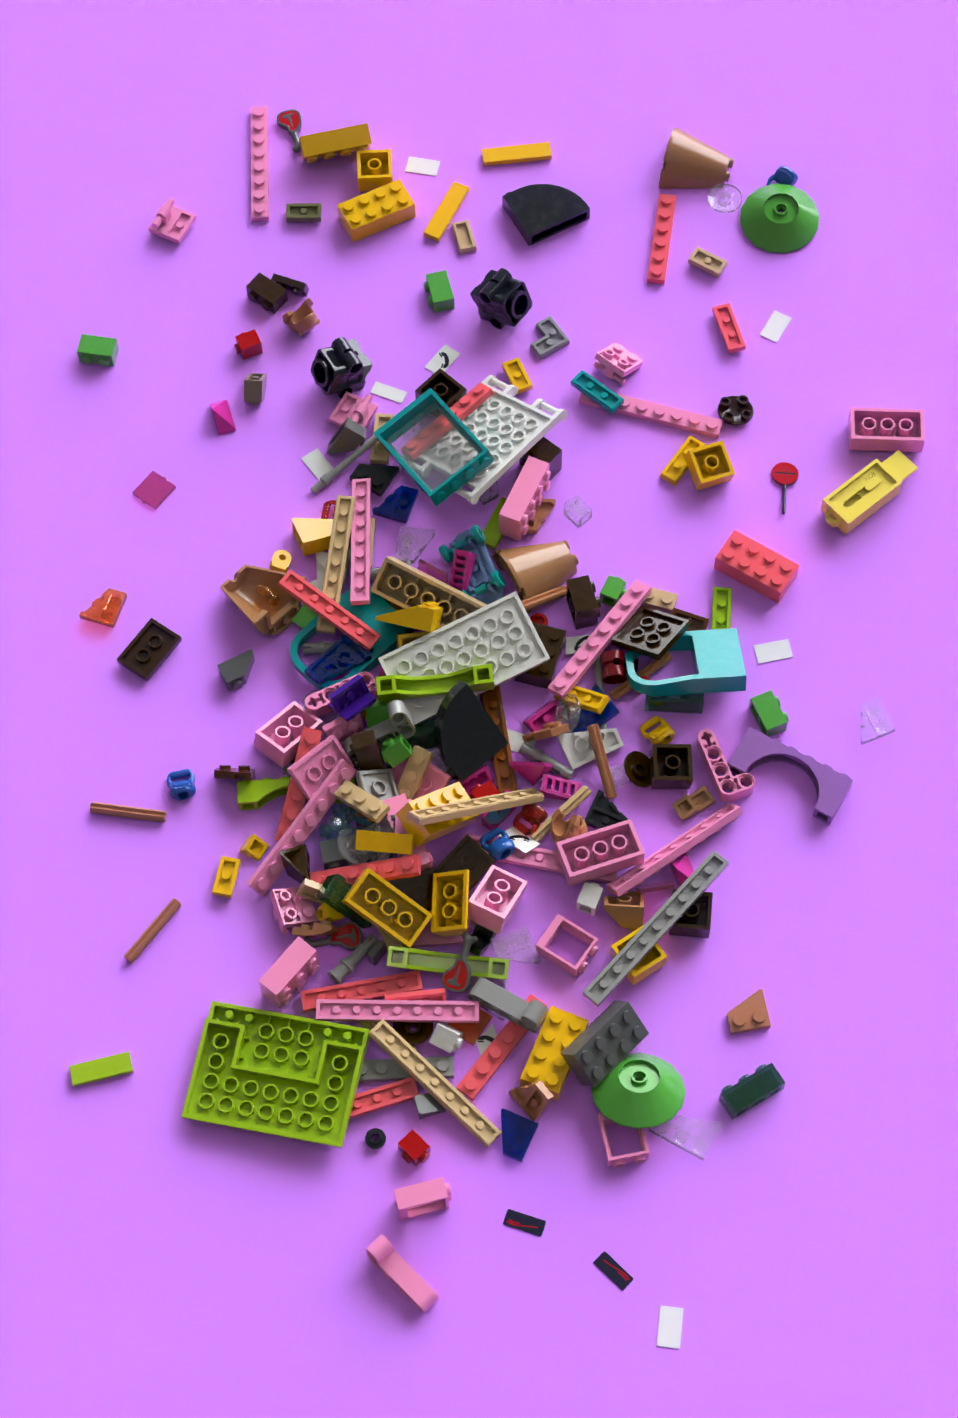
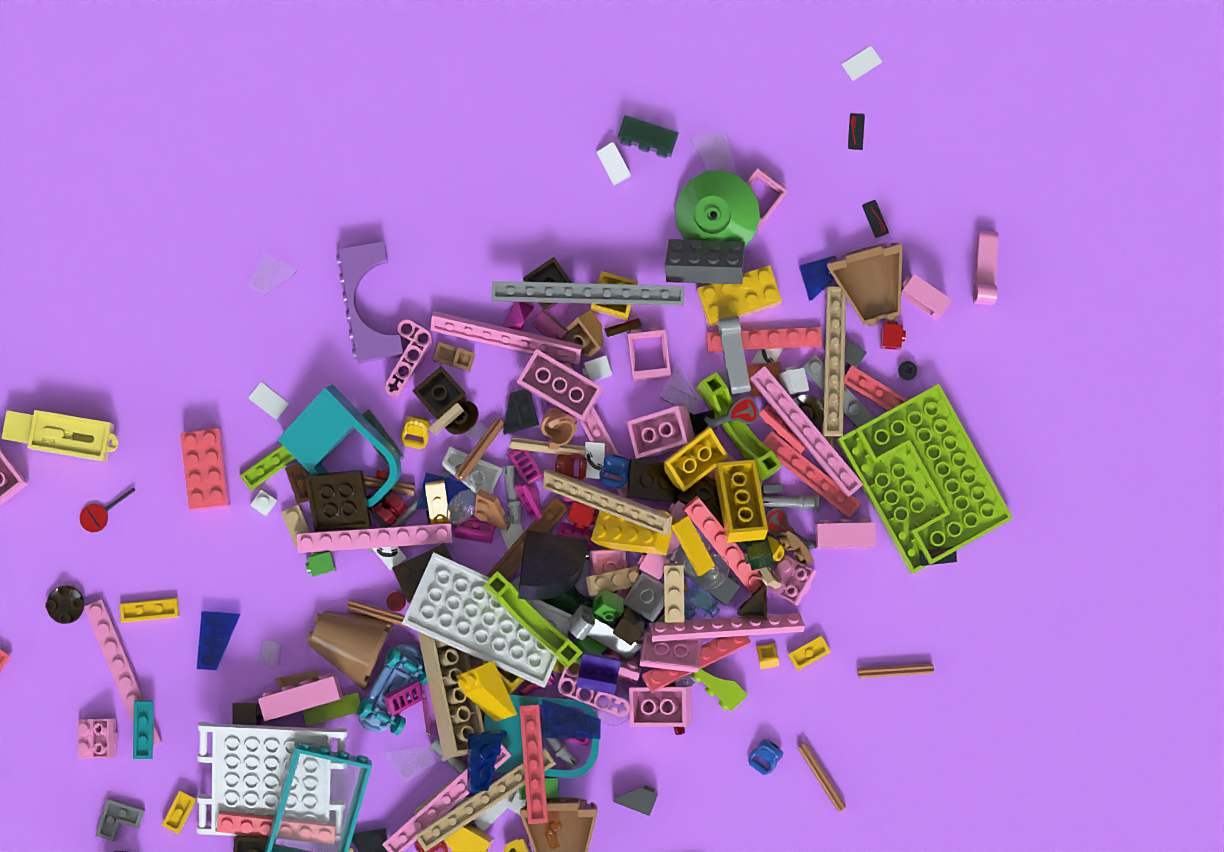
camera: 135 degrees left, 20 degrees up
(101, 1069) = (1027, 611): lime tile -> none
(211, 1032) = (951, 558): none -> black sticker
(227, 772) = (724, 720): reddish brown wing -> none
(366, 577) = (482, 756): none -> clear blue wing
(398, 505) = (384, 804): clear blue wing -> none
(476, 1164) = (871, 281): none -> medium nougat cone
(532, 1098) = (786, 282): nougat wing -> none
(582, 602) = (354, 576): dark brown brick -> none
(604, 949) = (623, 327): none -> sticker
(623, 485) = (214, 637): none -> clear blue wing
(647, 754) = (446, 419): none -> tan tile
(695, 589) = (263, 503): none -> white plate
(709, 465) = (141, 579): yellow brick -> none
(749, 1015) = (589, 184): nougat wing -> none
(751, 1047) = (613, 163): none -> white slope
(768, 713) = (330, 358): bright green brick -> none

